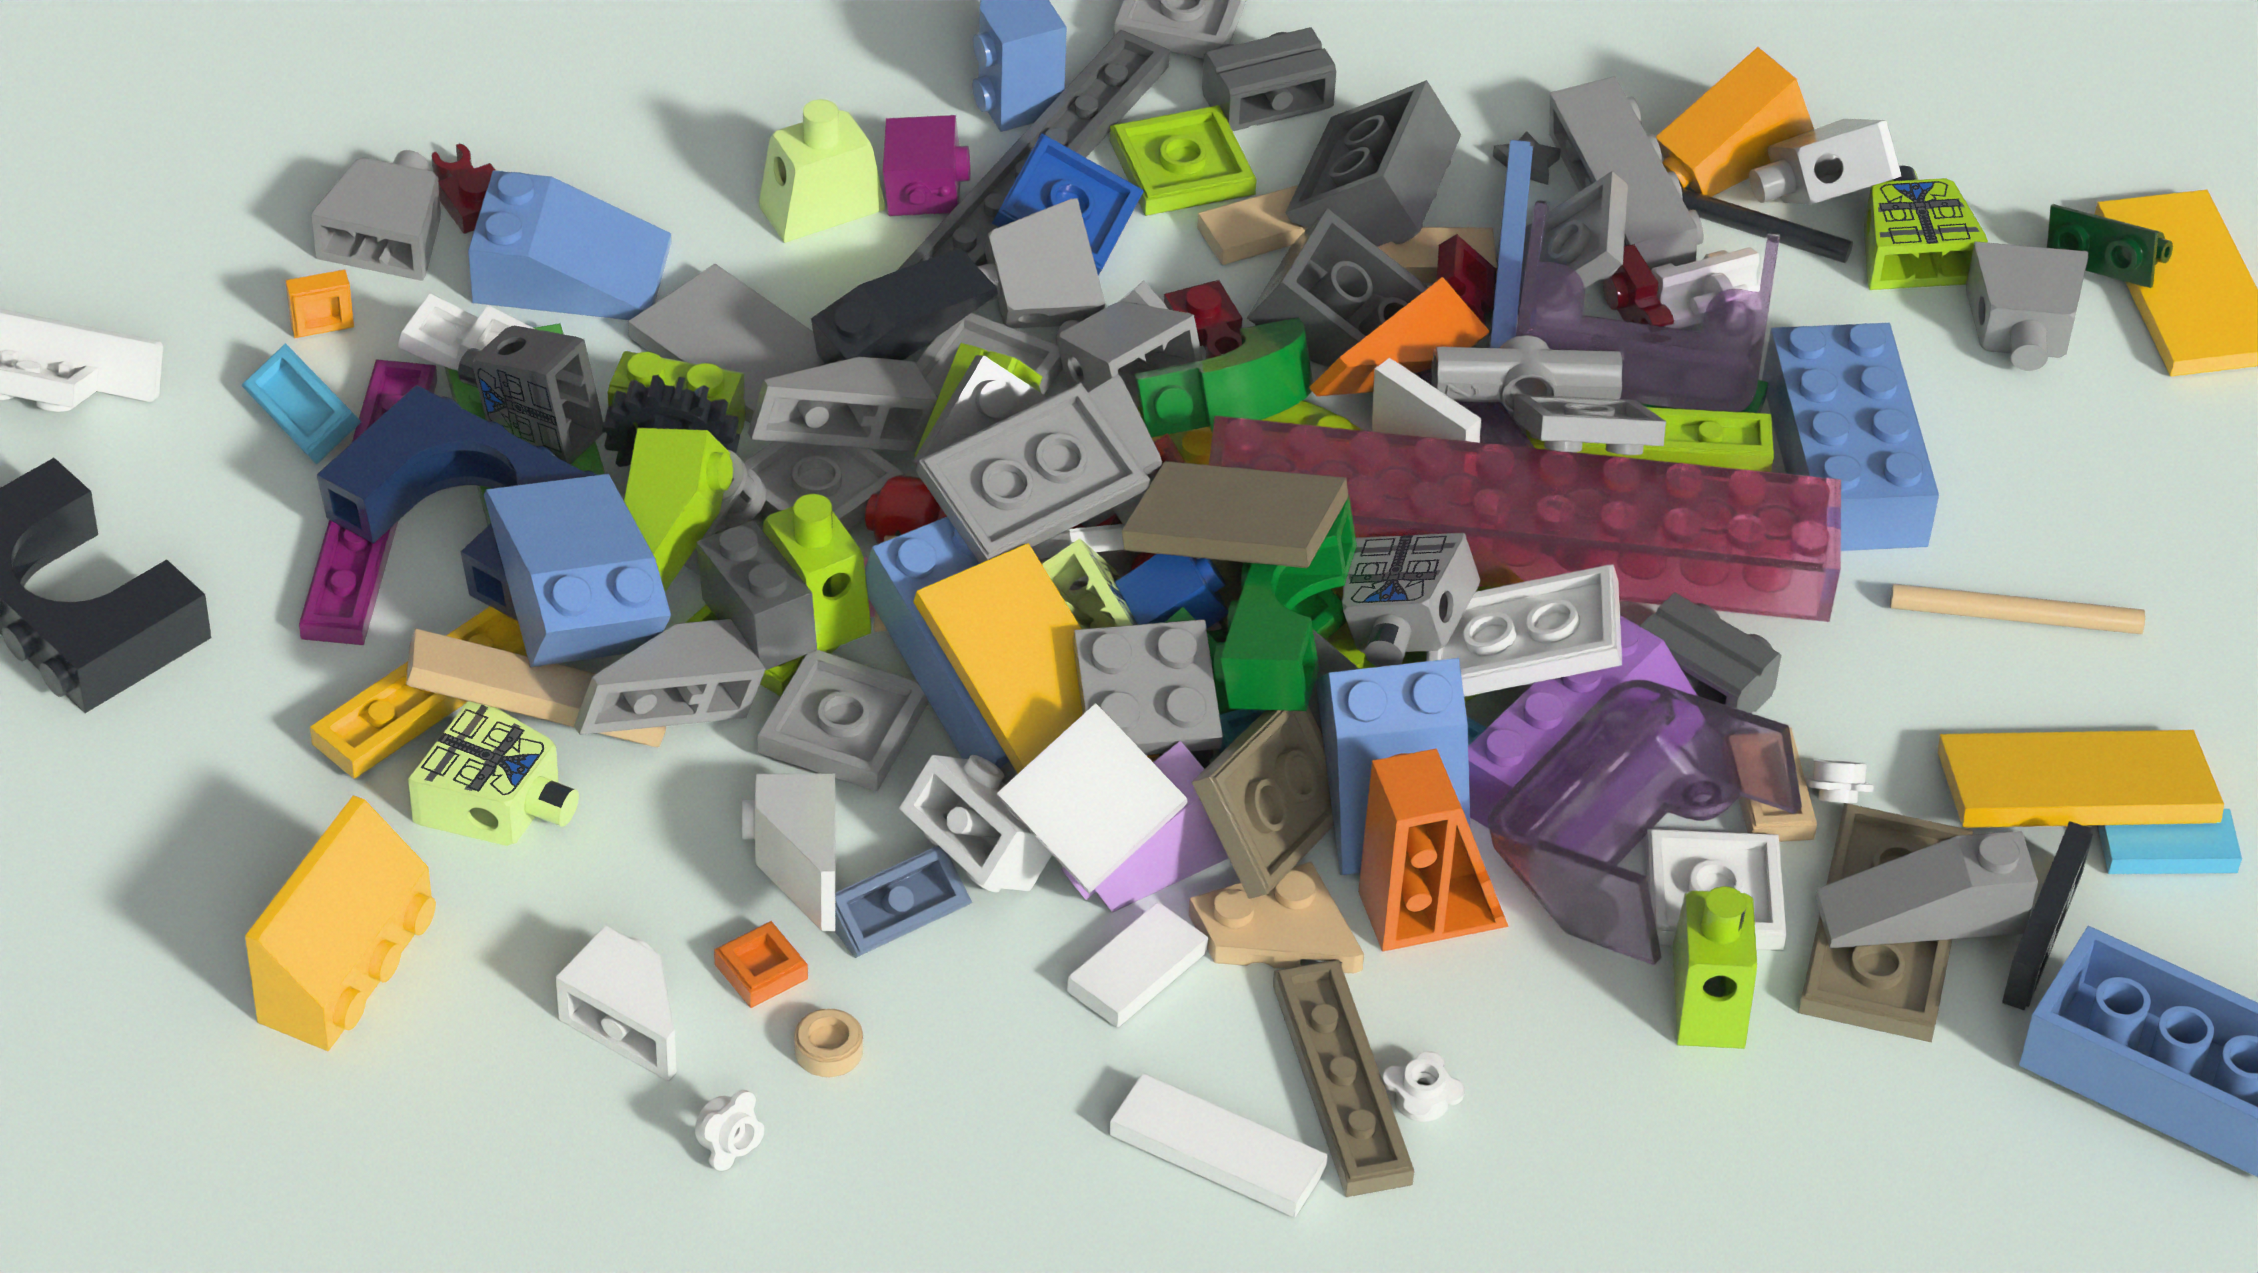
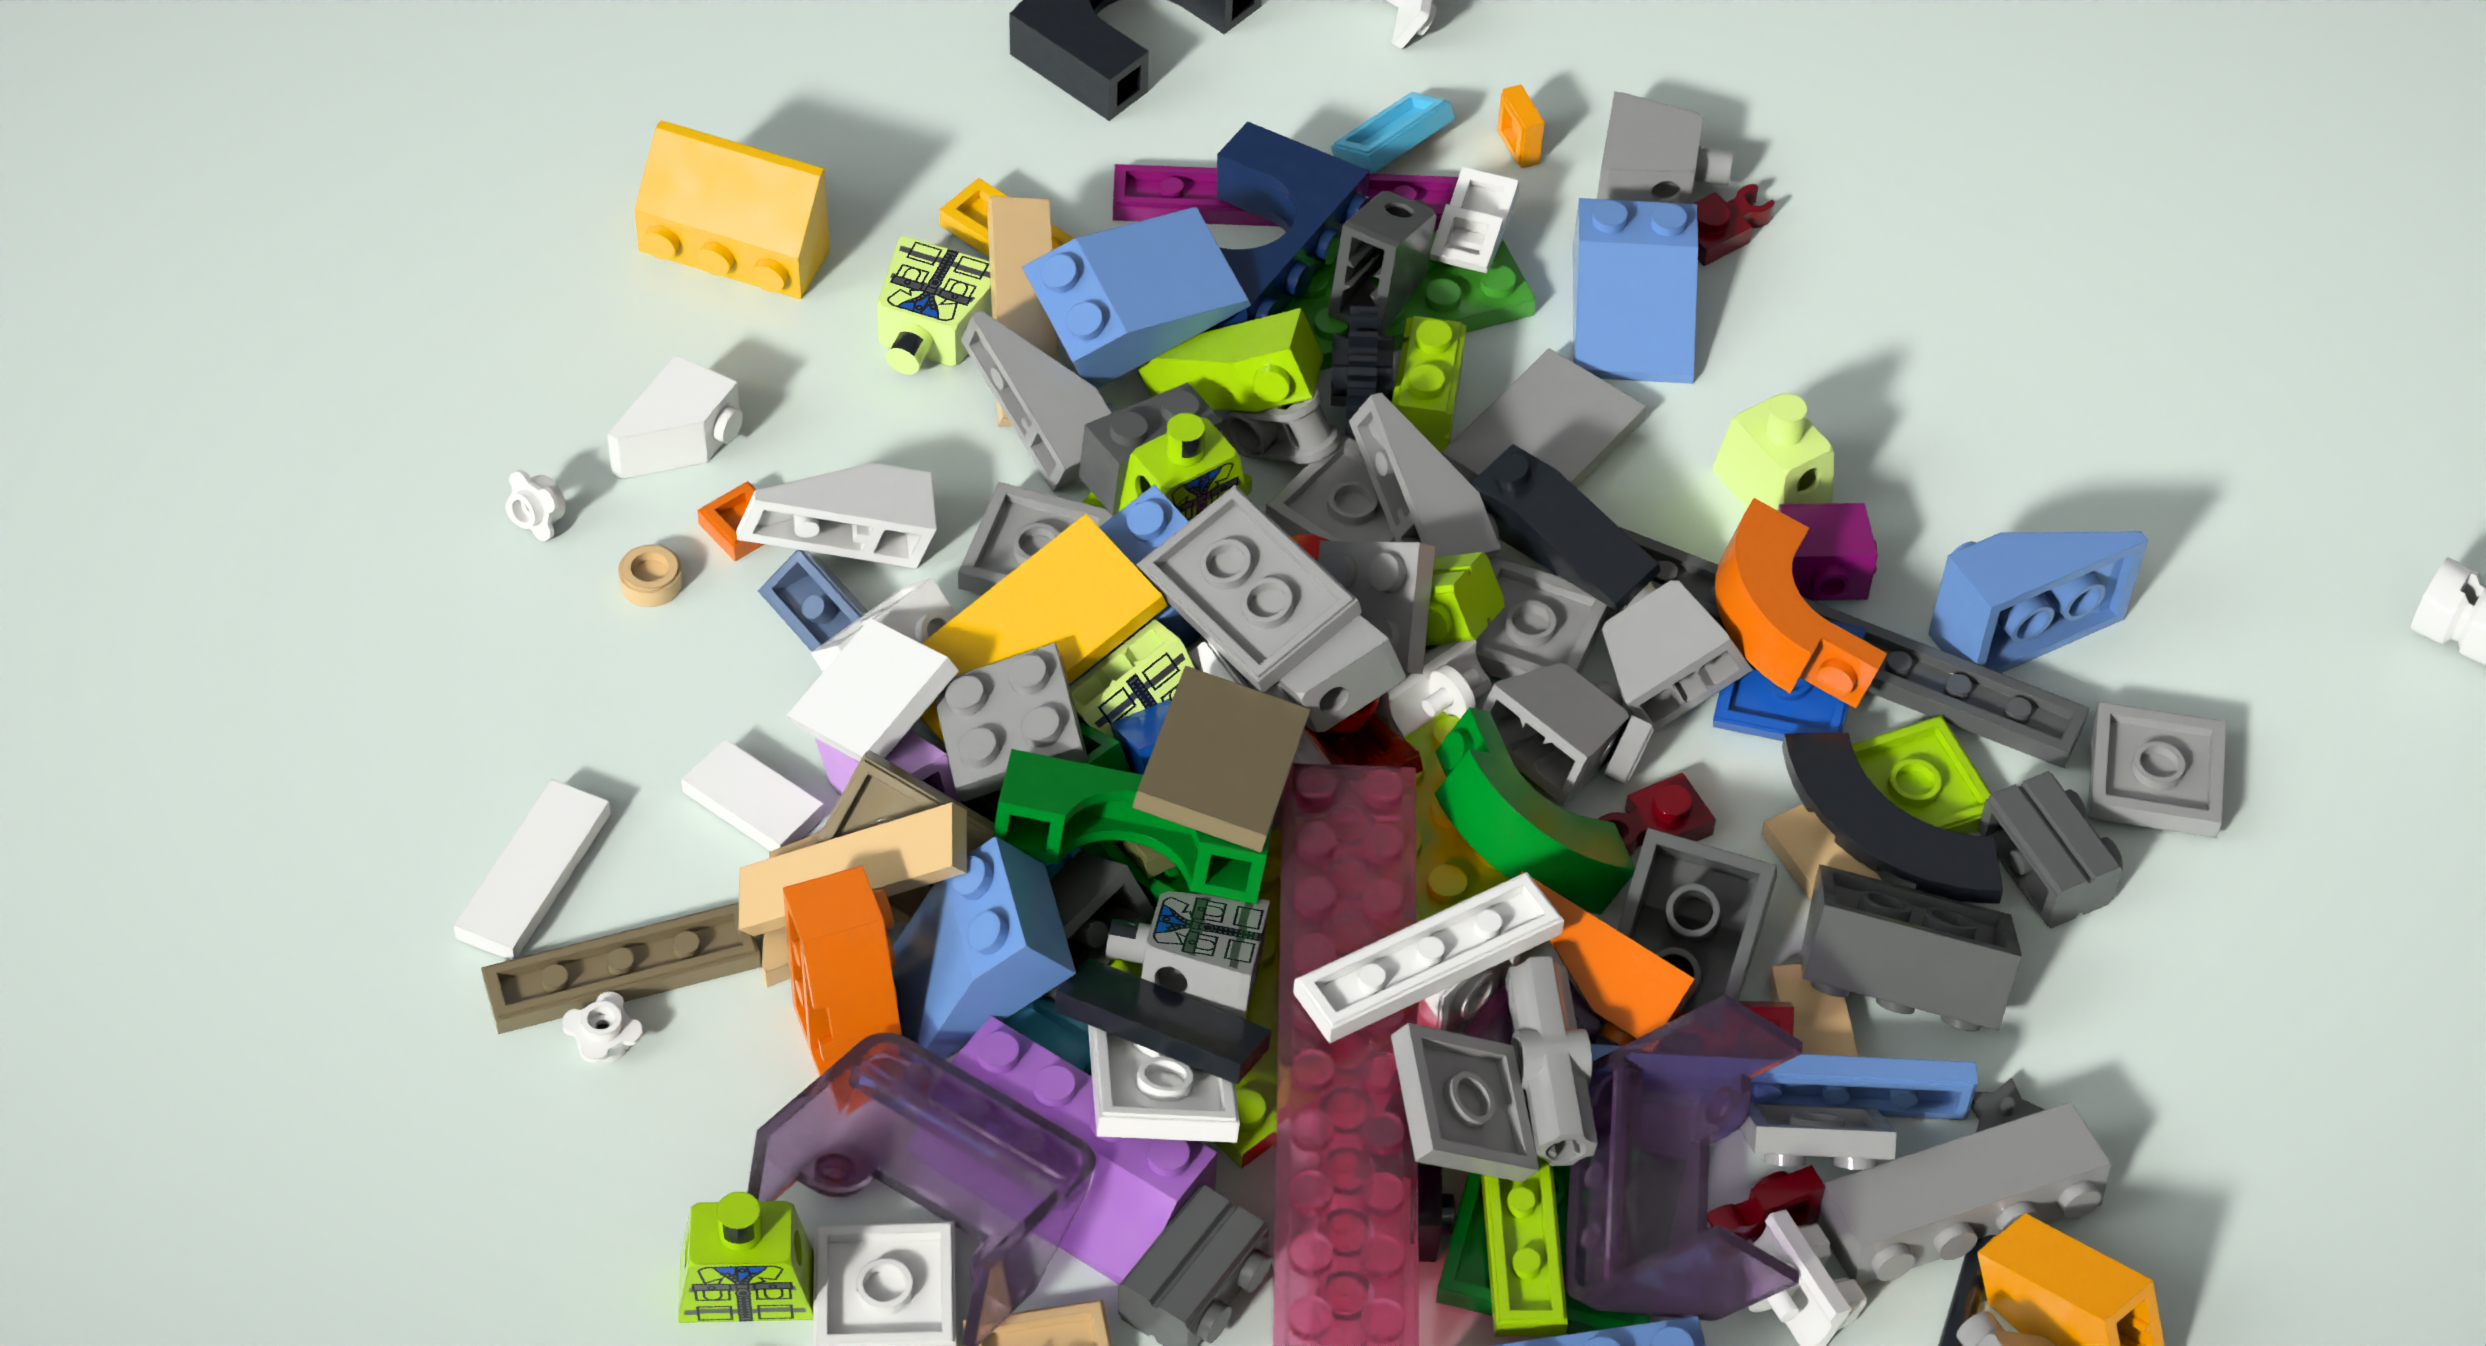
camera: 85 degrees right, 5 degrees up
(1022, 177) = (1772, 619): none -> orange arch
(1242, 177) = (1880, 832): none -> black tile
(1314, 823) = (893, 854): none -> tan tile
(1447, 416) = (1428, 957): none -> white tile
(1494, 610) = (1163, 1020): none -> black tile

